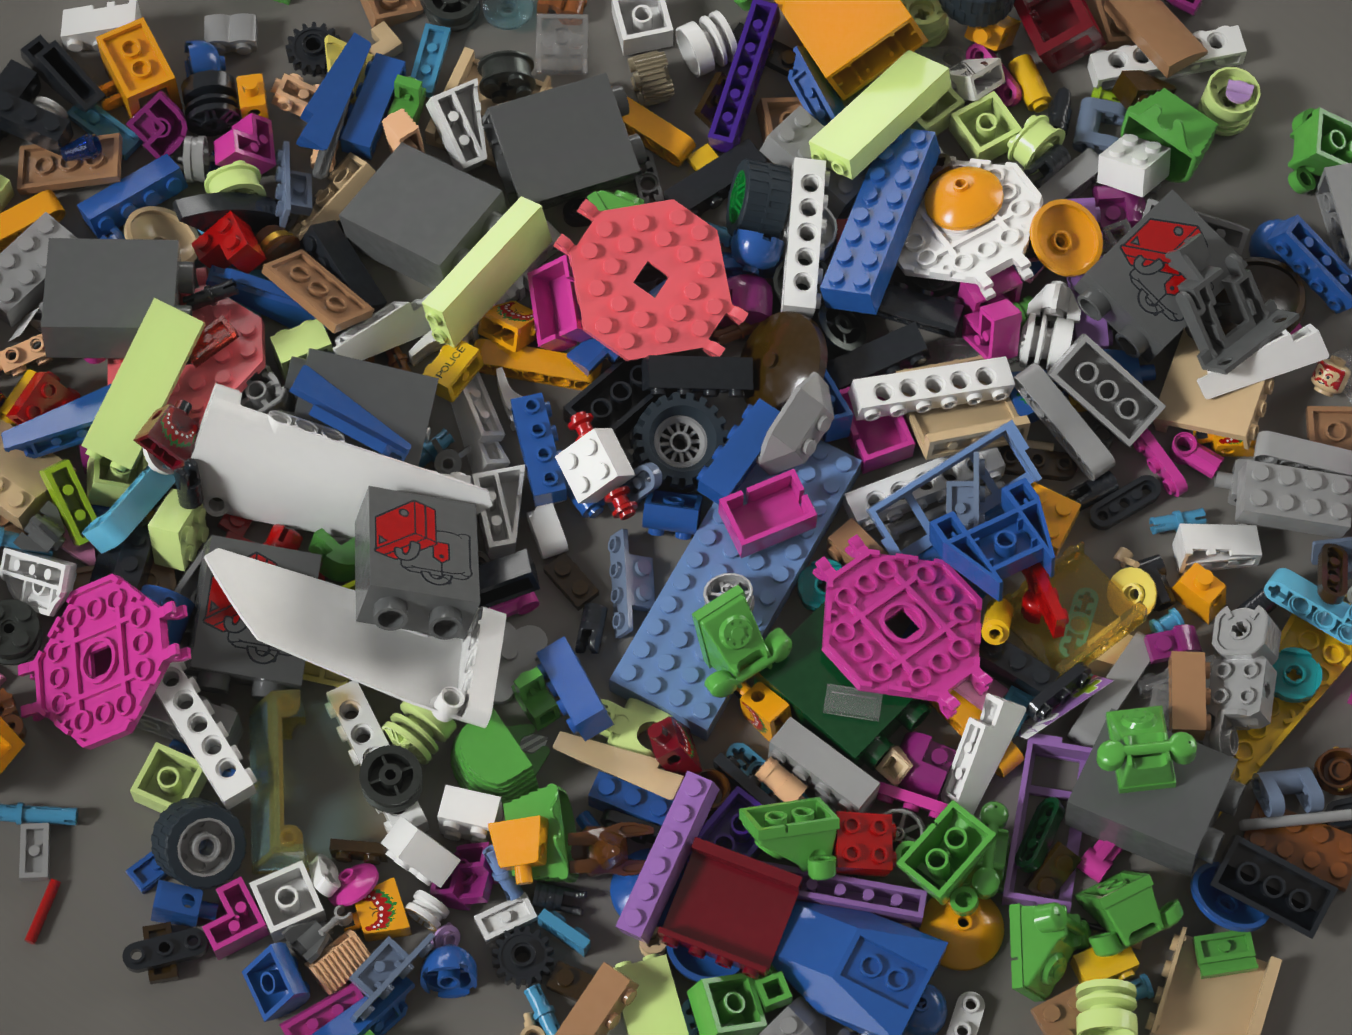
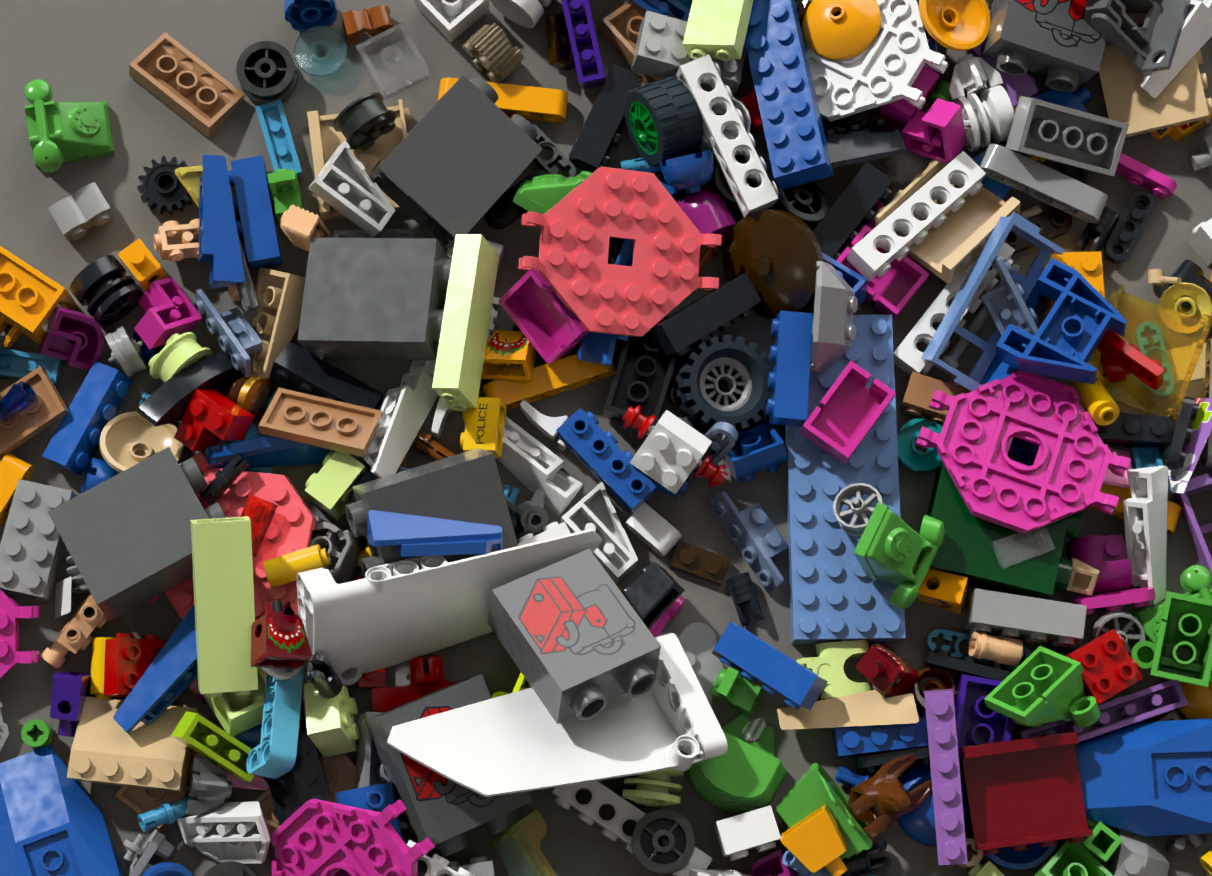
camera: 30 degrees left, 10 degrees up
(202, 57) = (73, 254): blue cylinder -> none
(205, 381) = (285, 567): none -> yellow brick
(336, 558) = (489, 661): bright green brick -> none
(386, 41) = (230, 143): tan piece -> none
(701, 157) = (581, 103): yellow tile -> none
(1172, 521) = (1183, 219): dark azure pin -> none
(1197, 457) = (1167, 151): dark pink piece -> none

